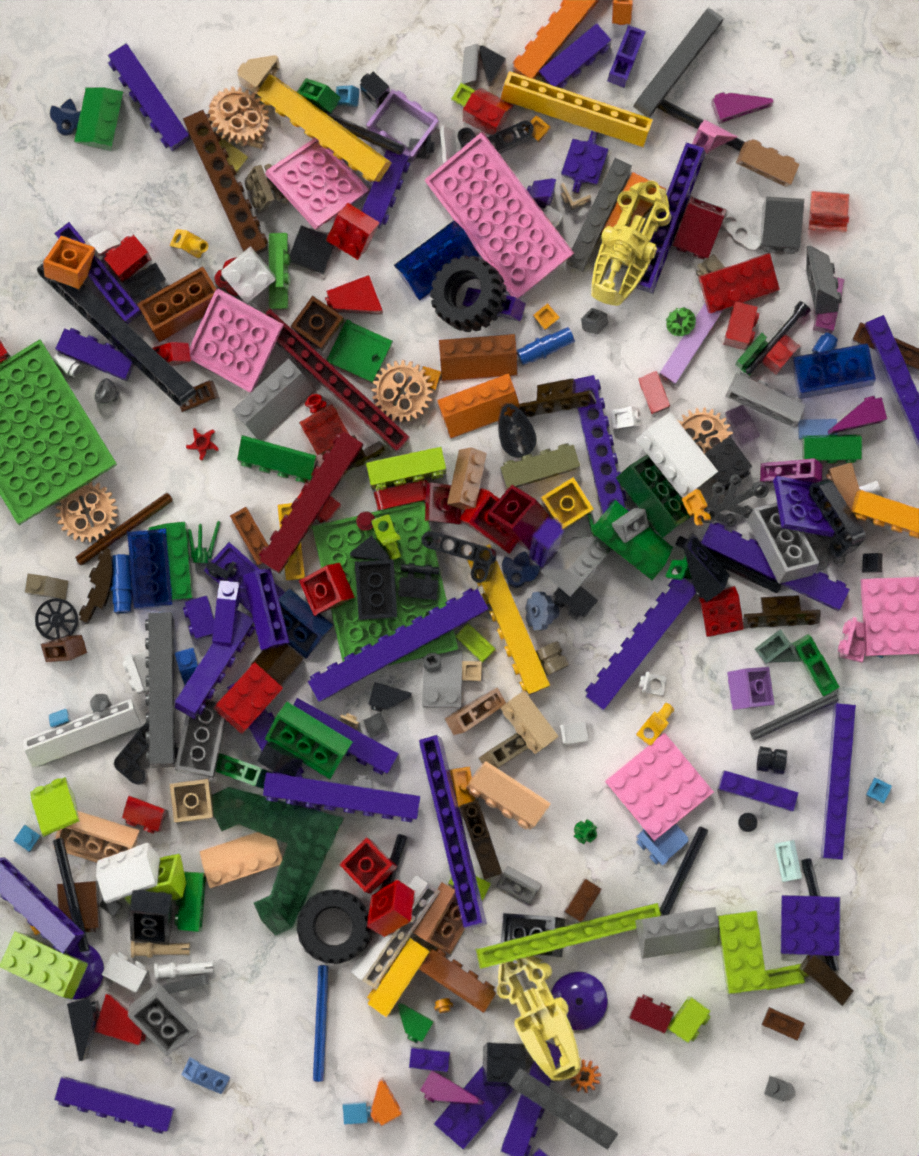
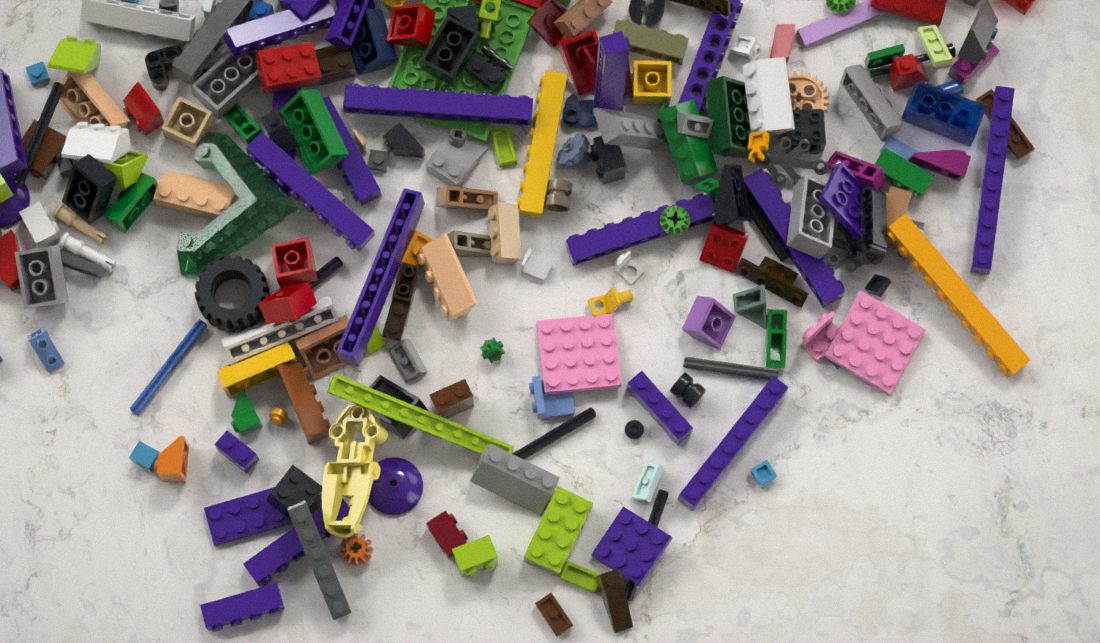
camera: 30 degrees right, 10 degrees down
(445, 1091) = (231, 486): magenta slope -> none
(458, 550) = (538, 60): black beam -> none
(471, 670) = (485, 165): tan plate -> none
(658, 616) = (667, 224): none -> bright green gear
(740, 325) = (889, 29): red brick -> none
(742, 425) = (839, 112): clear purple slope -> none
(789, 314) = (935, 46): none -> yellowish green plate

